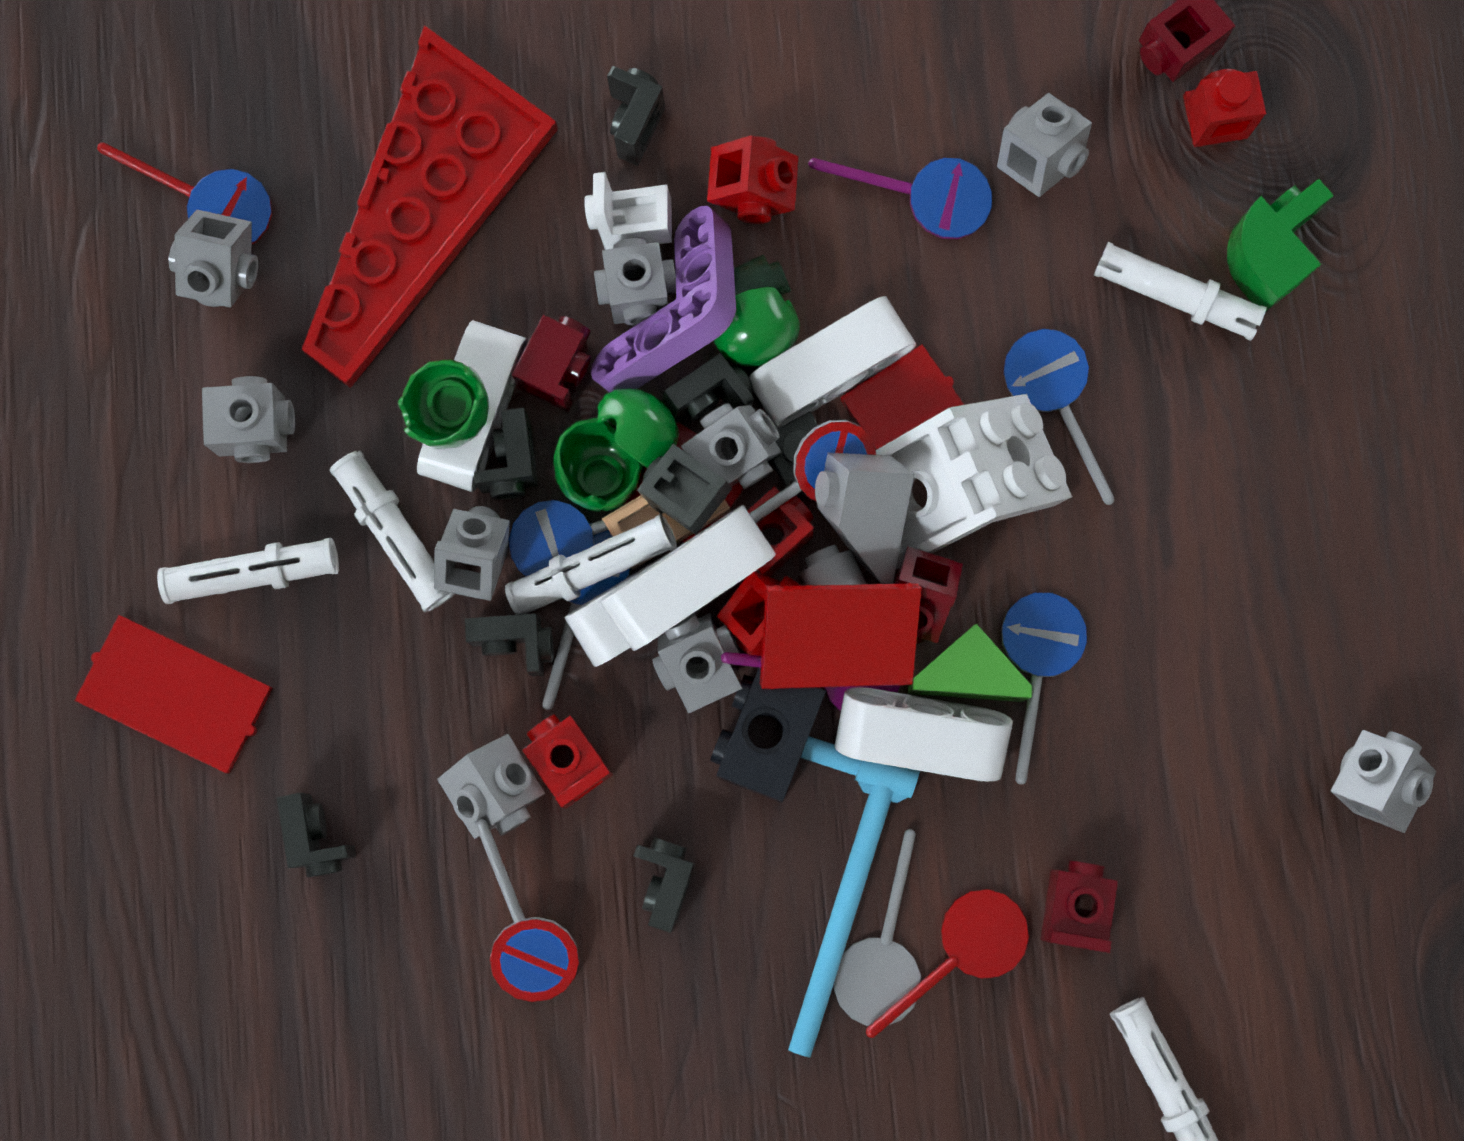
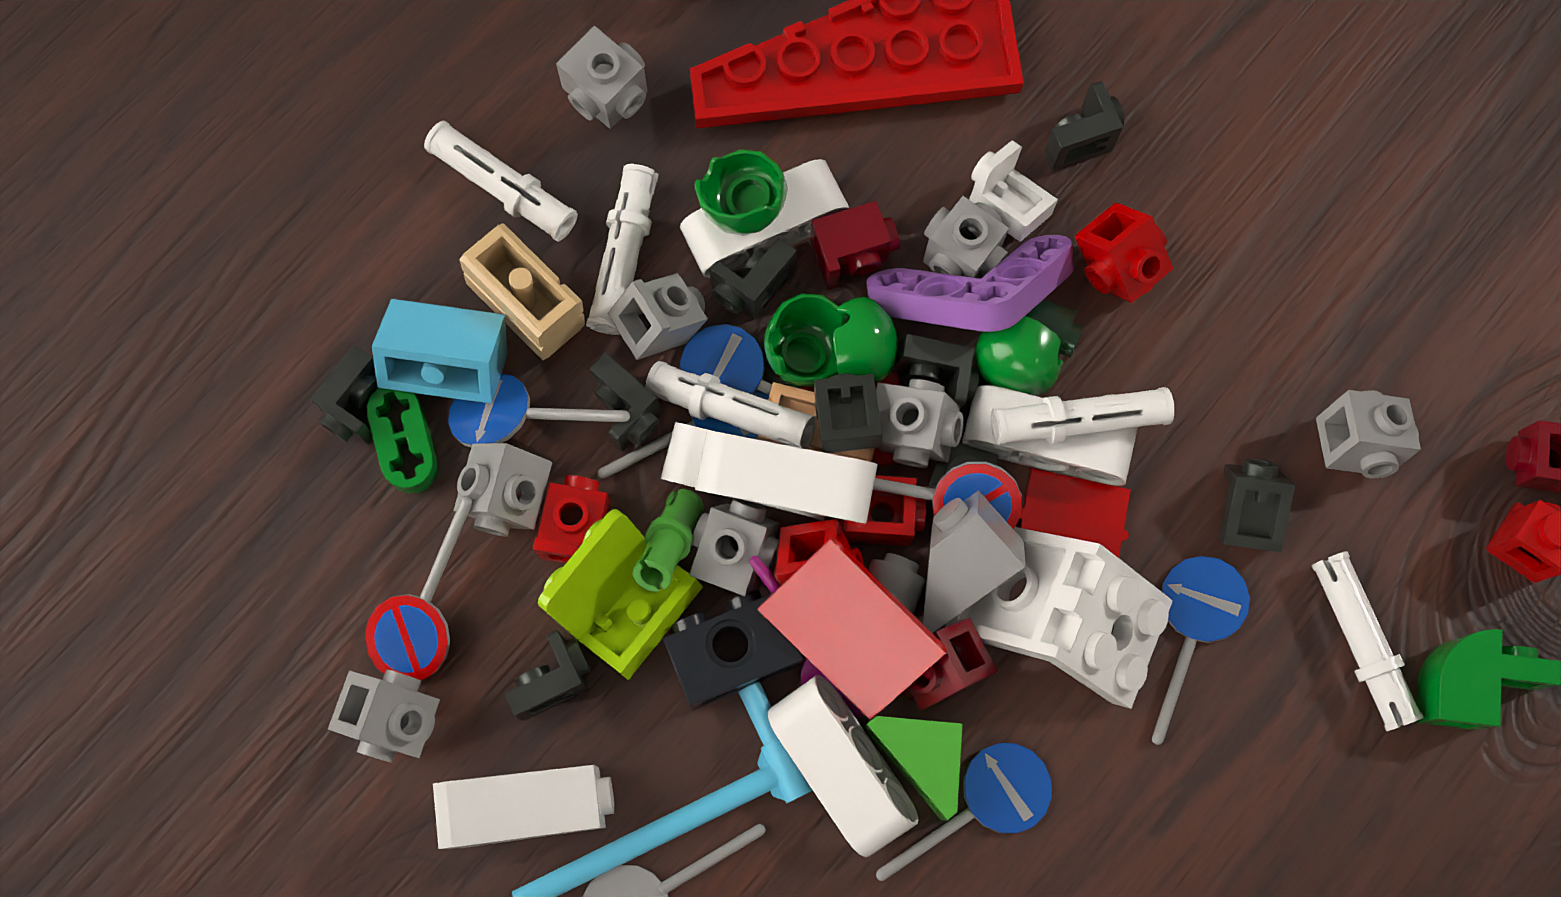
camera: 45 degrees right, 5 degrees down
(173, 694) = (367, 215): red piece -> none
(342, 737) = (440, 351): none -> medium azure brick
(356, 635) = (524, 290): none -> tan brick
(371, 839) = (389, 442): none -> green beam
(423, 735) = (497, 422): none -> blue piece
(578, 1026) = (385, 714): none -> light grey brick
(648, 704) = (668, 540): none -> bright green pin
(654, 776) = (604, 604): none -> lime bracket
(740, 986) = (521, 806): none -> white slope
(830, 347) = (1058, 418): none -> white pin
(945, 198) = (1256, 403): blue piece -> none
(1017, 270) = (1256, 505): none -> pearl dark grey bracket

